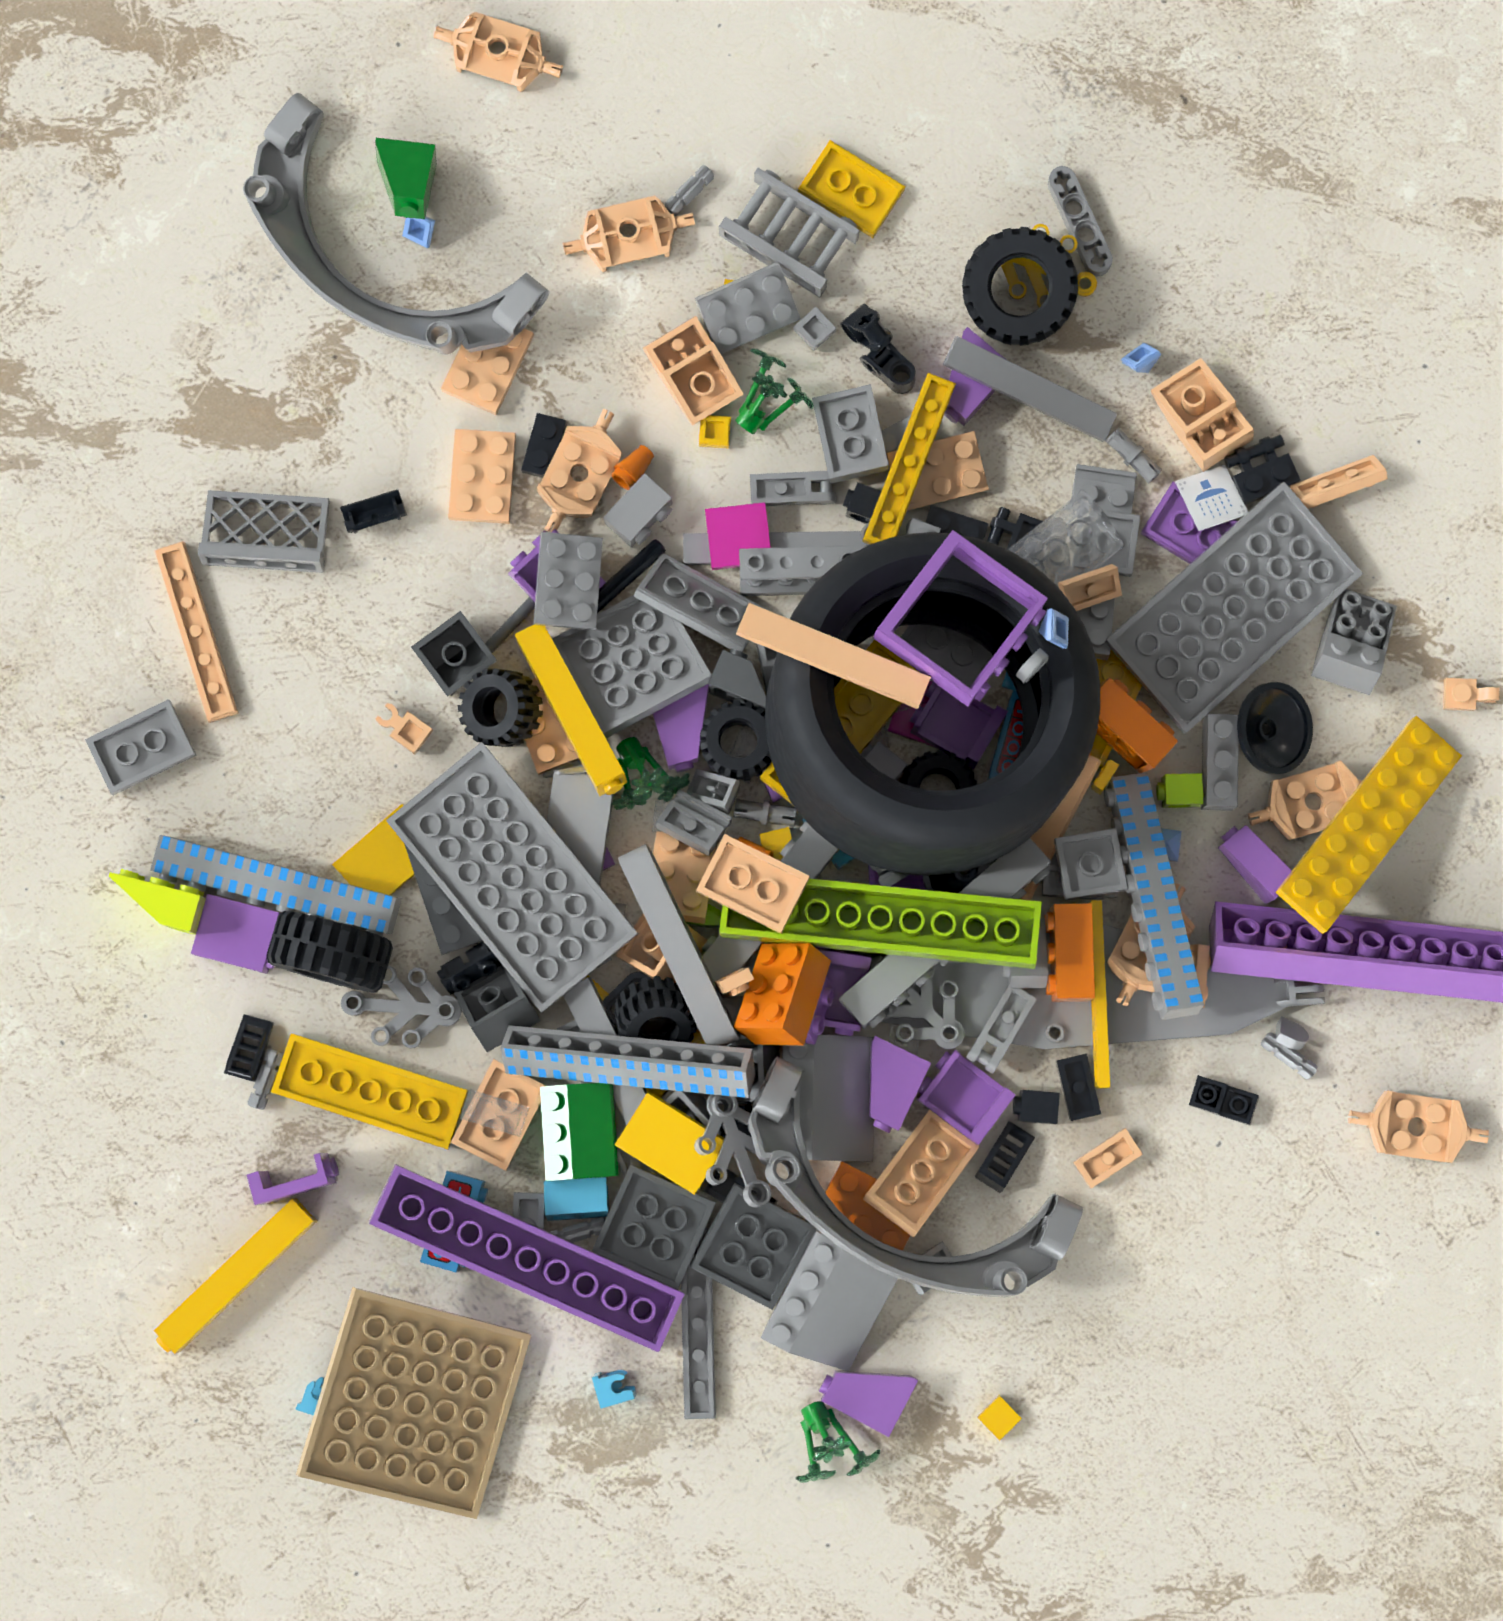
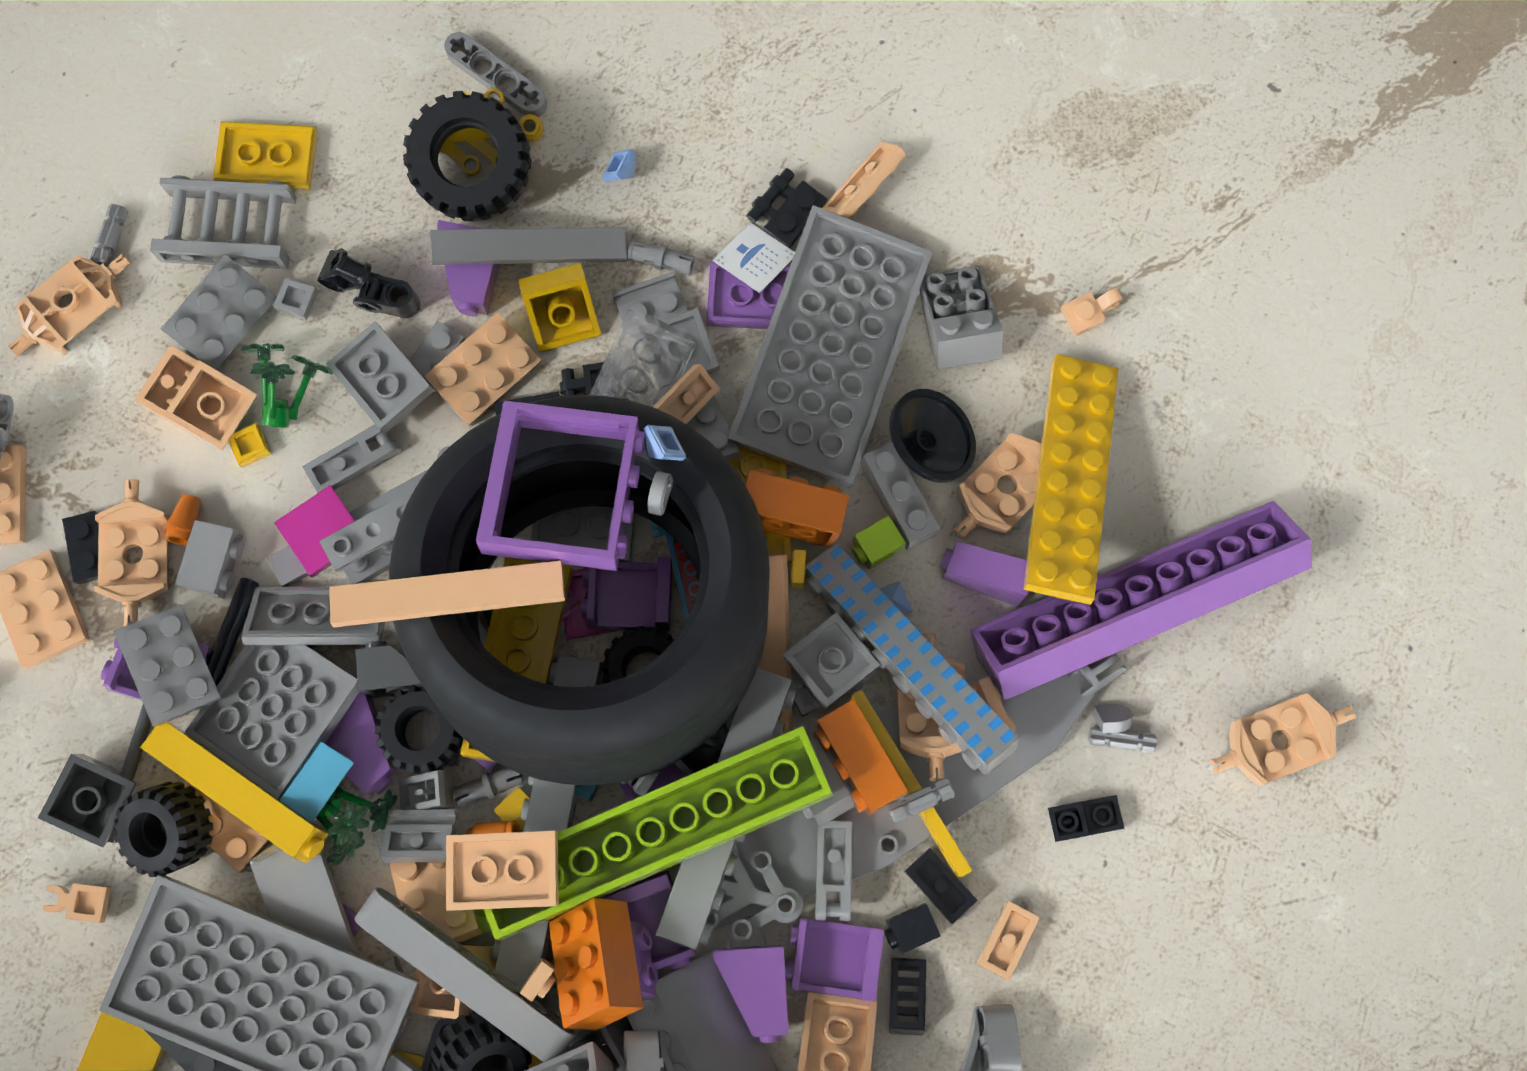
camera: 30 degrees left, 5 degrees down
(640, 737) = (316, 781): none -> medium azure hinge
(861, 502) = (430, 434): black brick -> none
(909, 459) = (446, 360): yellow tile -> none
(1027, 453) = (559, 307): none -> yellow slope
(1100, 1011) = (921, 800): none -> light grey axle
(1203, 414) = (704, 186): light nougat slope -> none

